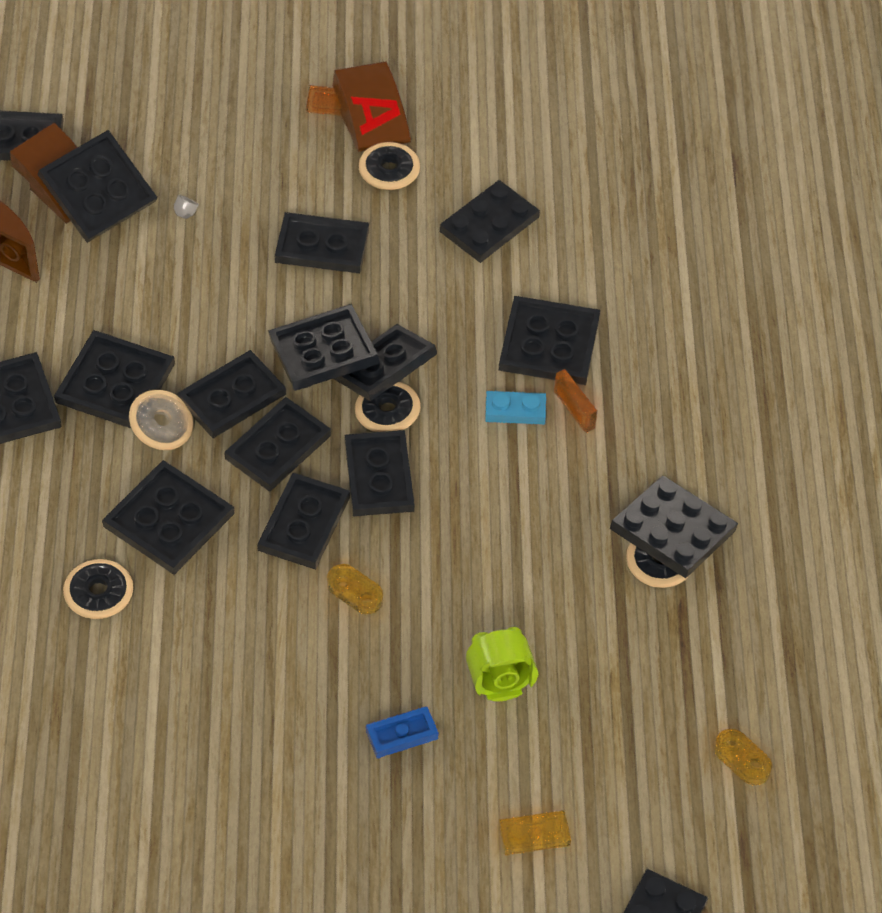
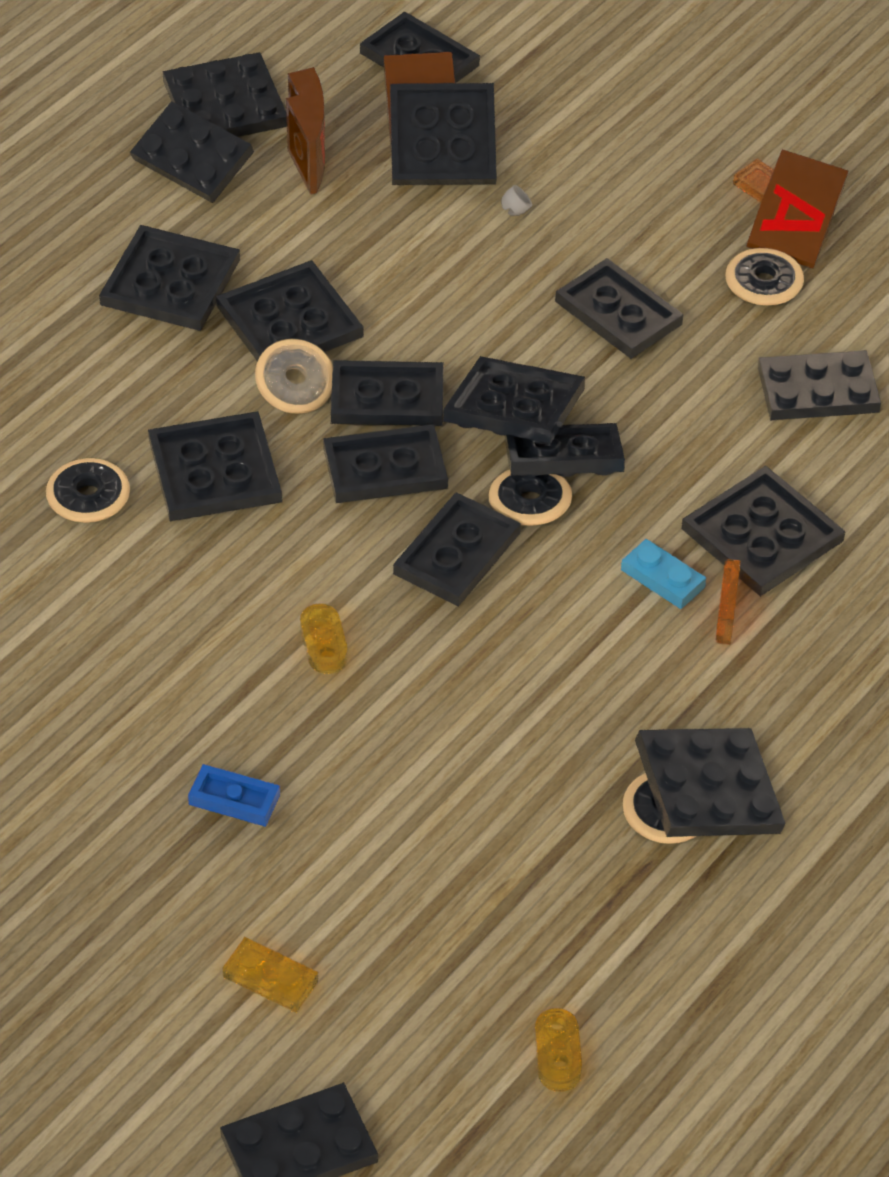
camera: 40 degrees right, 5 degrees down
(303, 520) = (338, 547): black plate -> none
(501, 664) = (387, 792): lime brick -> none

